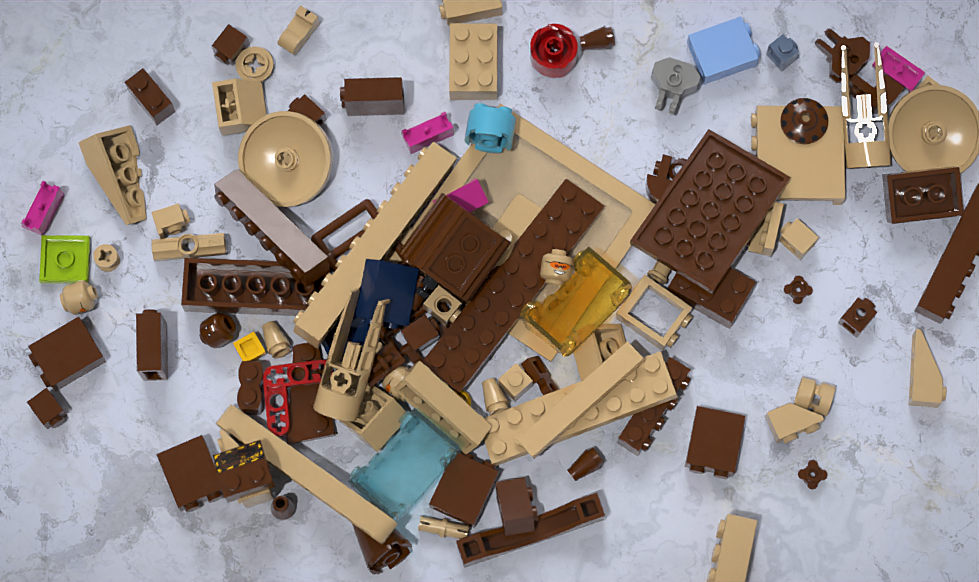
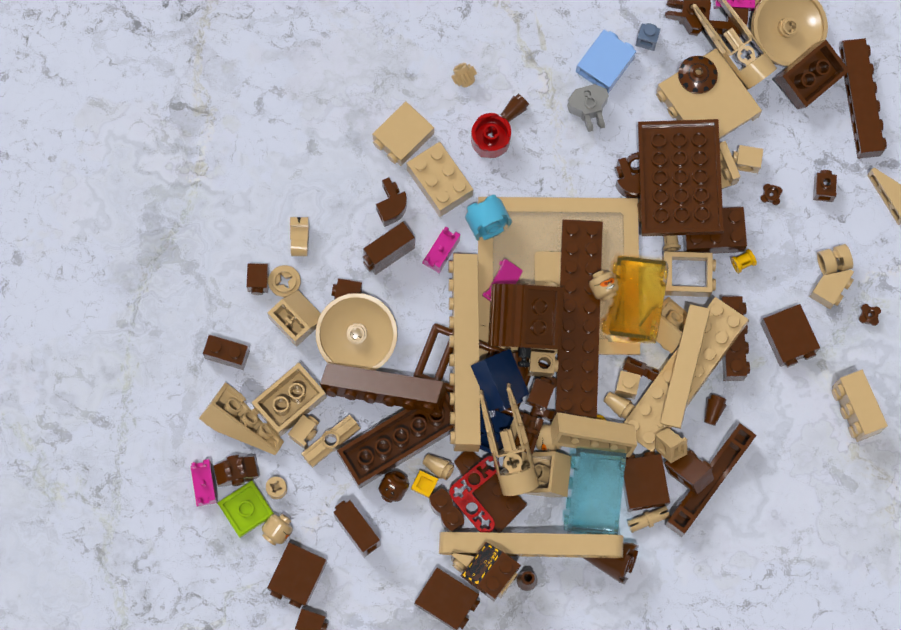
camera: 40 degrees left, 0 degrees up
(78, 216) = (235, 471): none -> reddish brown hinge
(175, 180) = (289, 399): none -> tan brick
(413, 60) = (395, 206): none -> reddish brown brick
(512, 468) = (671, 445): none -> tan brick
(720, 337) = (743, 261): none -> yellow bush

